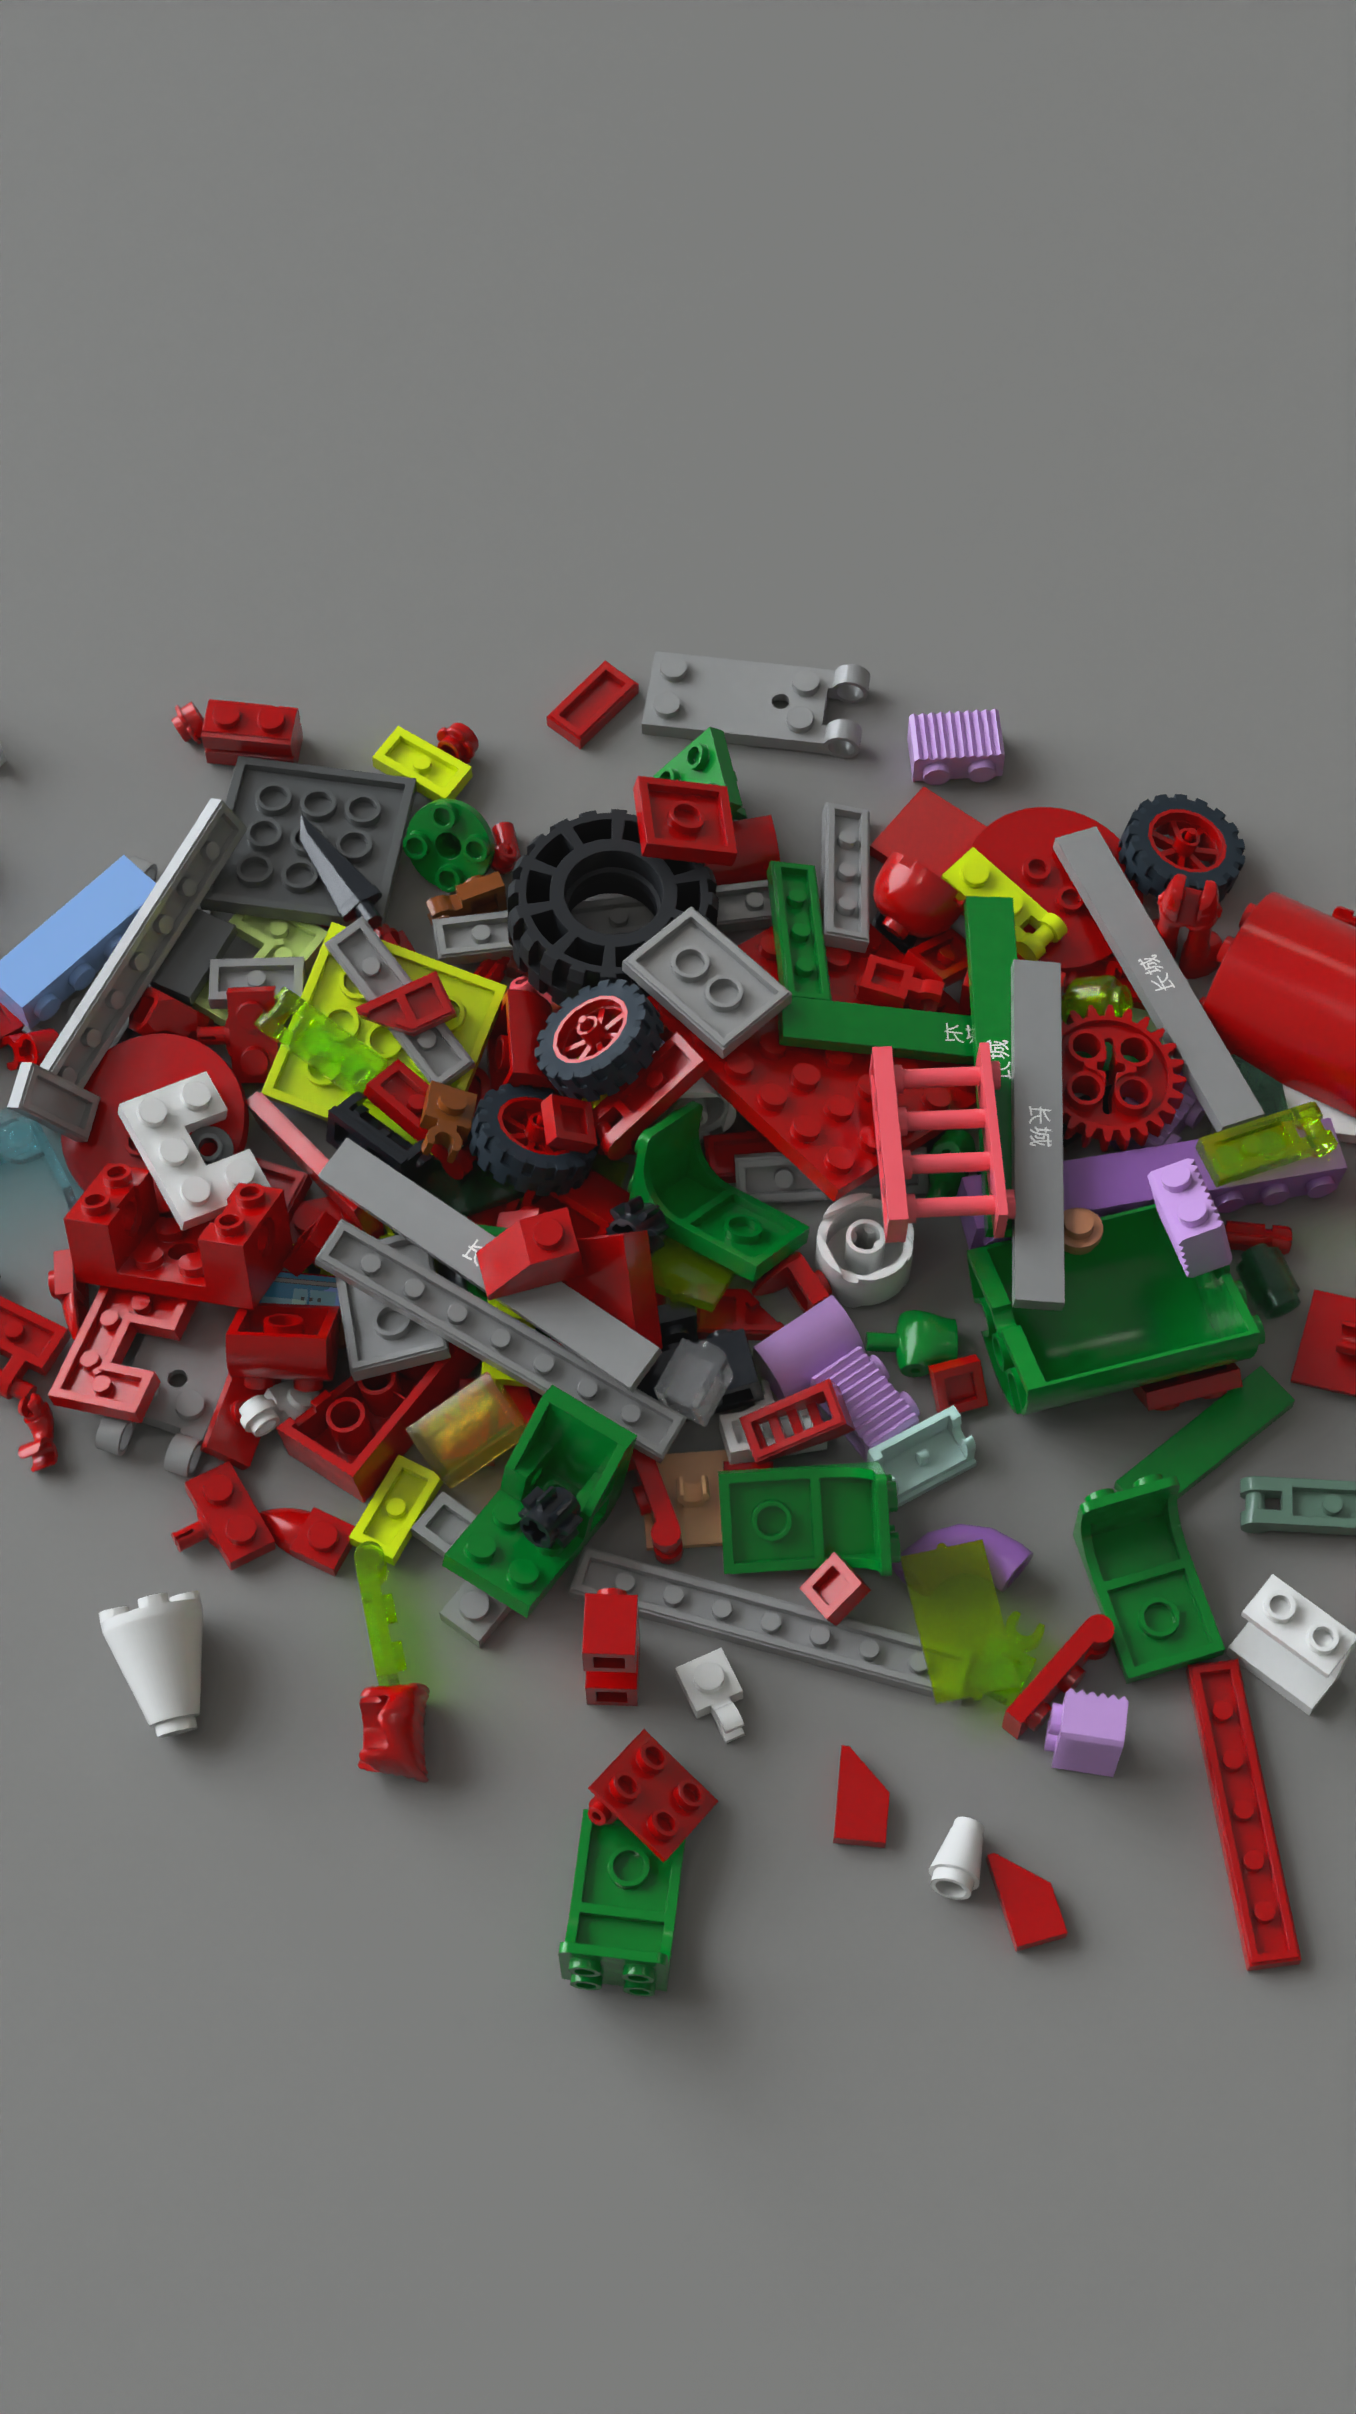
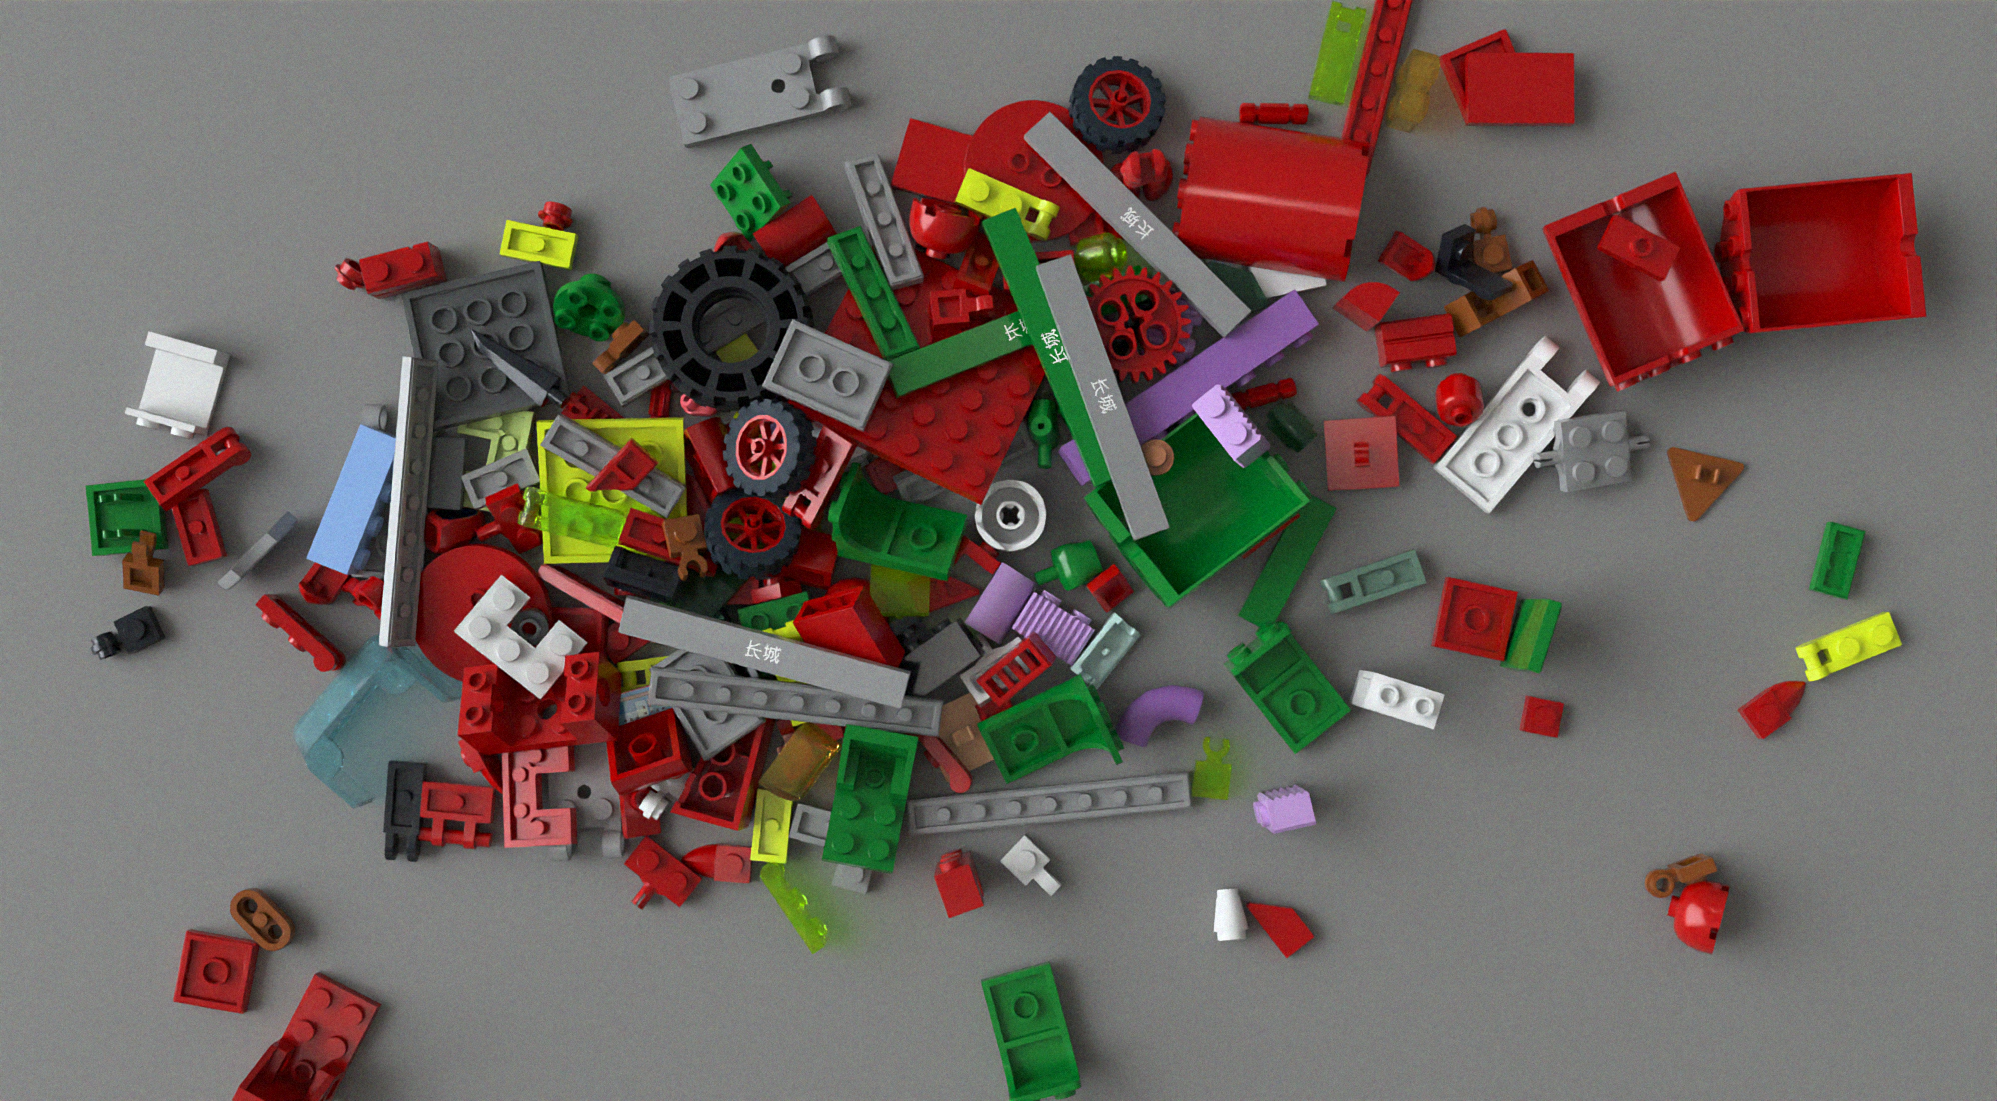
camera: 25 degrees left, 25 degrees up
(41, 1424) = (508, 858): red arm -> none
(53, 1102) = (404, 638): light grey tile -> none
(160, 1657) = (664, 993): white cone -> none
(309, 1244) = (634, 670): red plate -> none
(394, 1730) = (839, 980): red hair -> none
(506, 848) = (630, 290): red arm -> none
(531, 1255) = (796, 646): red slope -> none
(550, 1517) = (881, 809): black gear -> none
(568, 1123) = (775, 521): red plate -> none
(592, 704) = (640, 139): red tile -> none
(639, 1216) = (852, 571): black gear -> none
(650, 1796) = (1022, 960): red hinge -> none
(684, 821) = (758, 245): red tile -> none
(695, 1380) = (939, 677): clear brick -> none
(835, 1589) = (1084, 770): plate -> none
(860, 1804) = (1153, 902): red tile -> none
(899, 1165) = (1004, 435): coral fence -> none
(955, 746) = (921, 76): lavender brick -> none
(959, 1622) = (1174, 763): clear neon green piece -> none
(1060, 1674) = (1250, 768): red plate -> none
(1243, 1815) = (1396, 810): red tile -> none
(1265, 1144) = (1259, 336): clear neon green plate -> none

